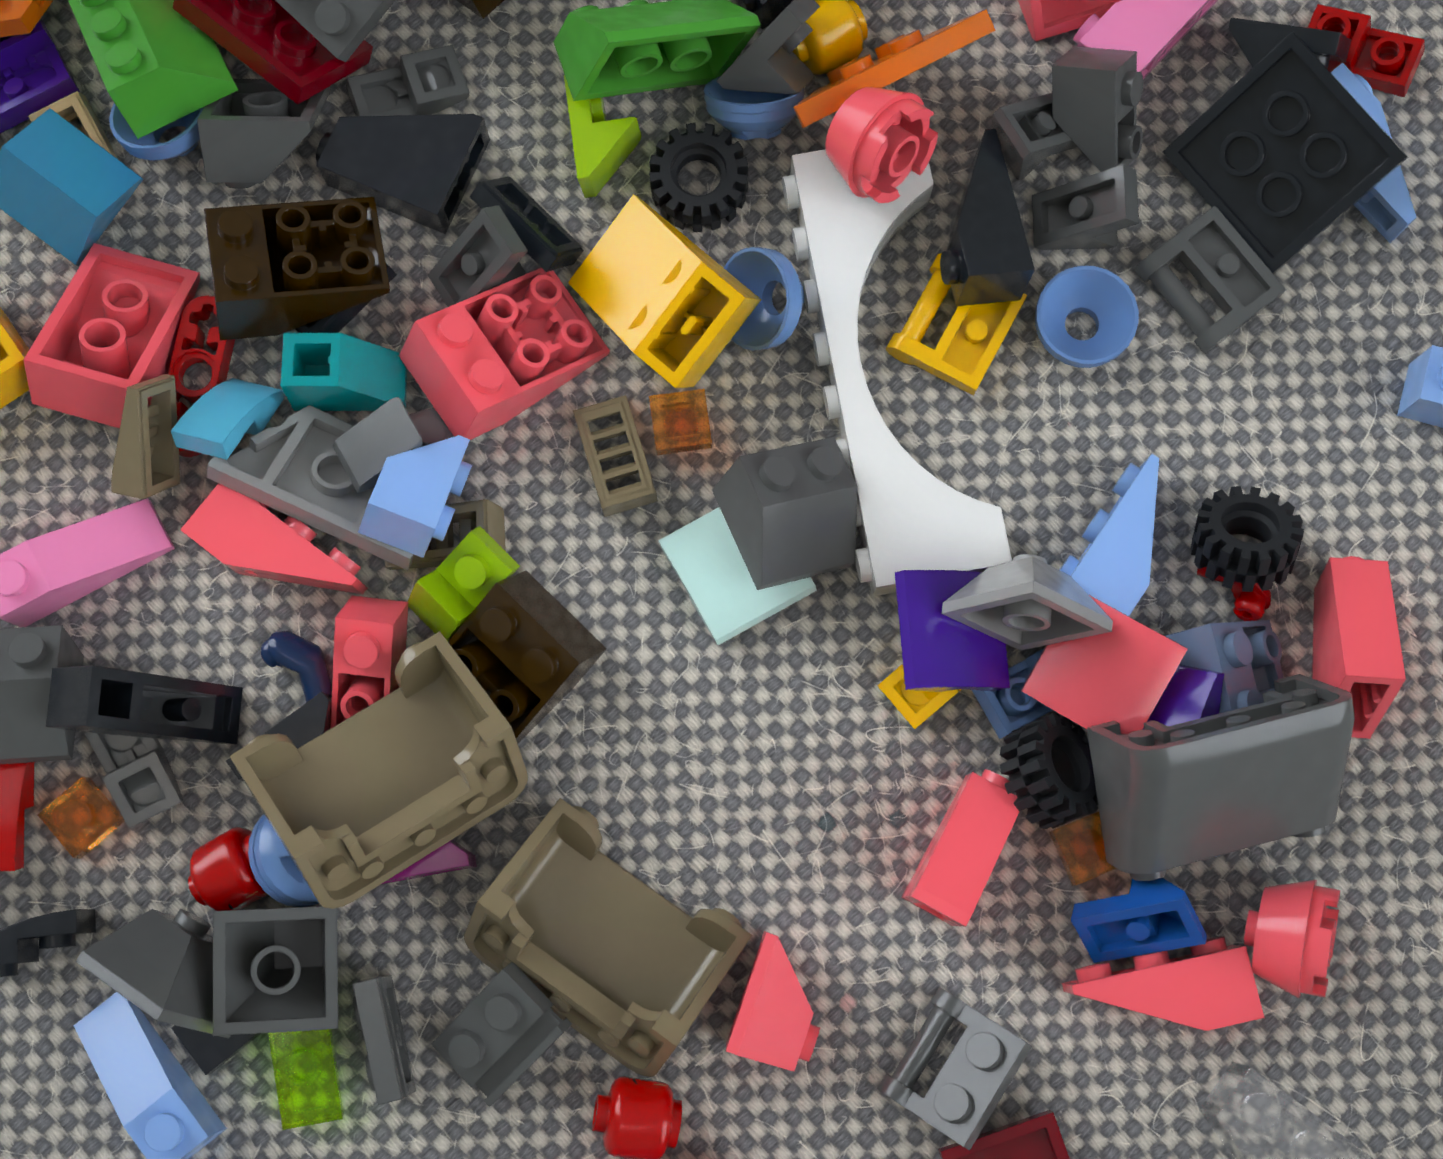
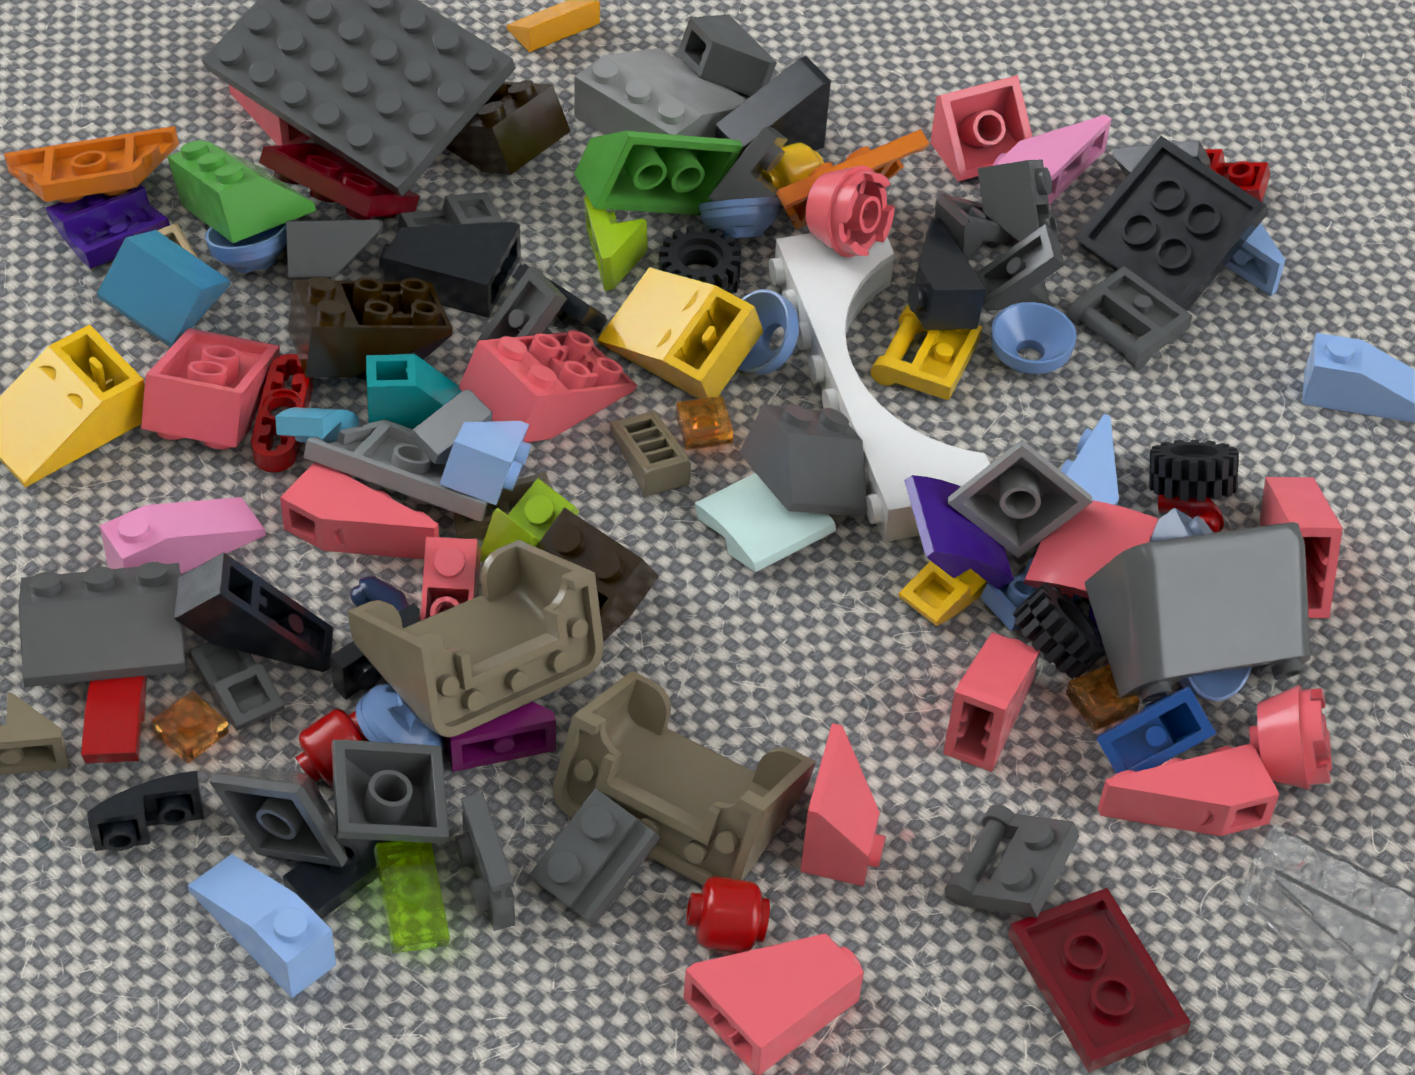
camera: 10 degrees left, 30 degrees down
(145, 449) = (248, 439): dark tan slope -> none

